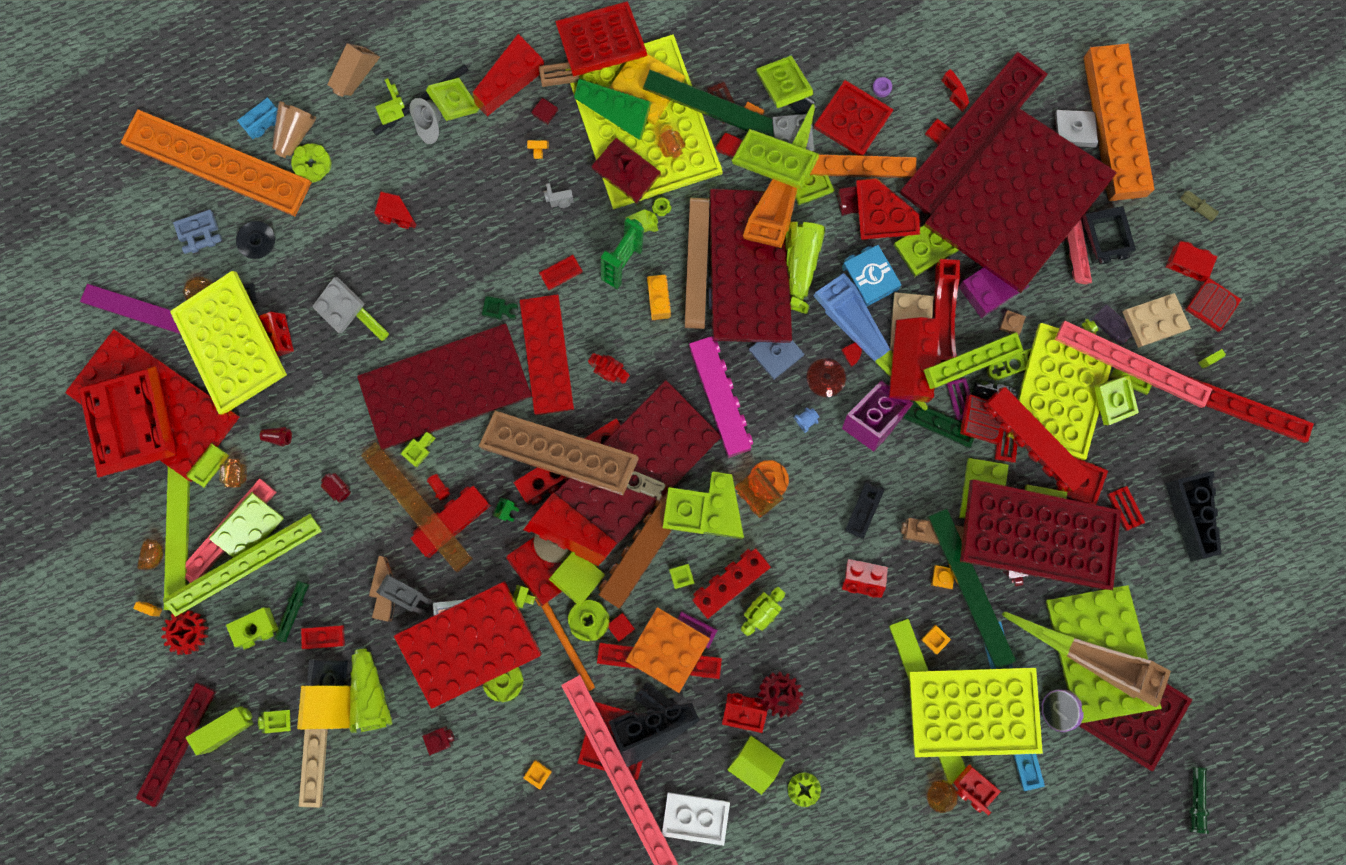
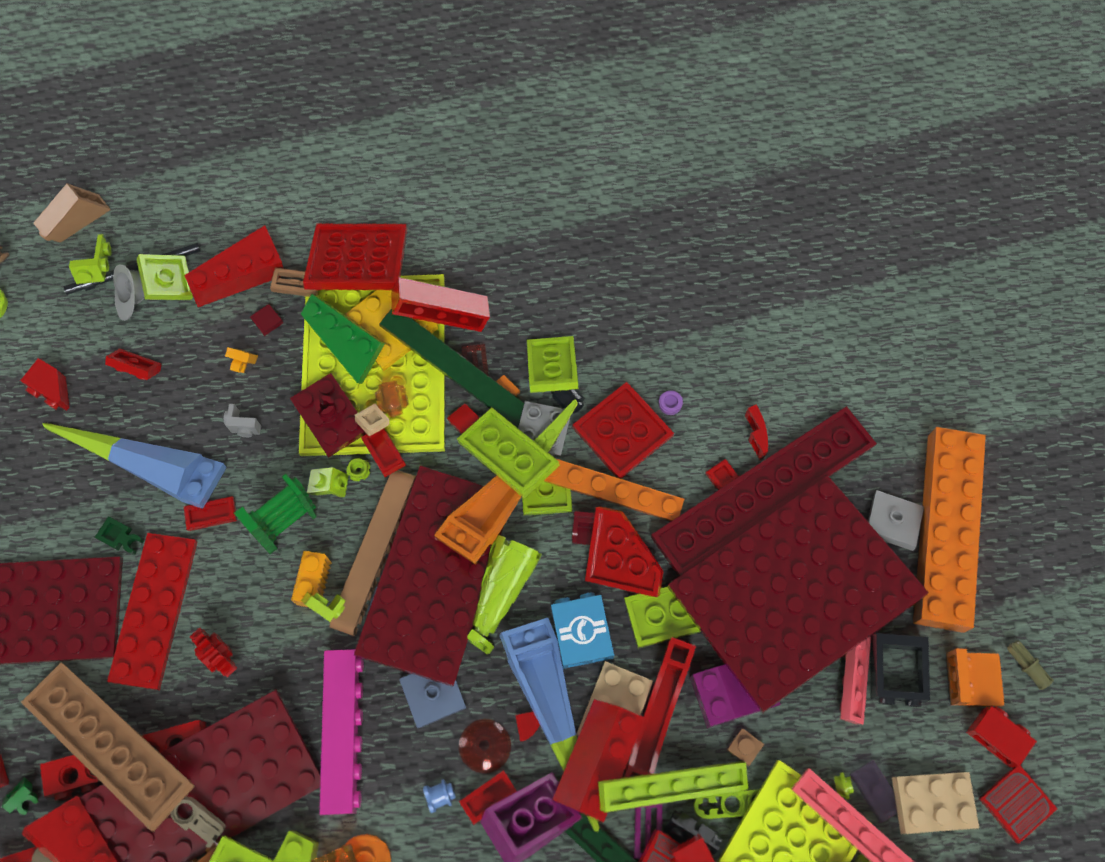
camera: 15 degrees right, 10 degrees down
(455, 175) = (133, 364): none -> red plate
(522, 248) = (174, 471): none -> medium blue plate
(663, 164) = (372, 419): none -> tan plate
(678, 186) = (383, 452): none -> red tile
(680, 312) = (318, 604): none -> lime bracket
(683, 59) = (439, 304): none -> brick
(837, 414) = (486, 796): none -> red plate
(1162, 226) = (974, 678): none -> orange bracket

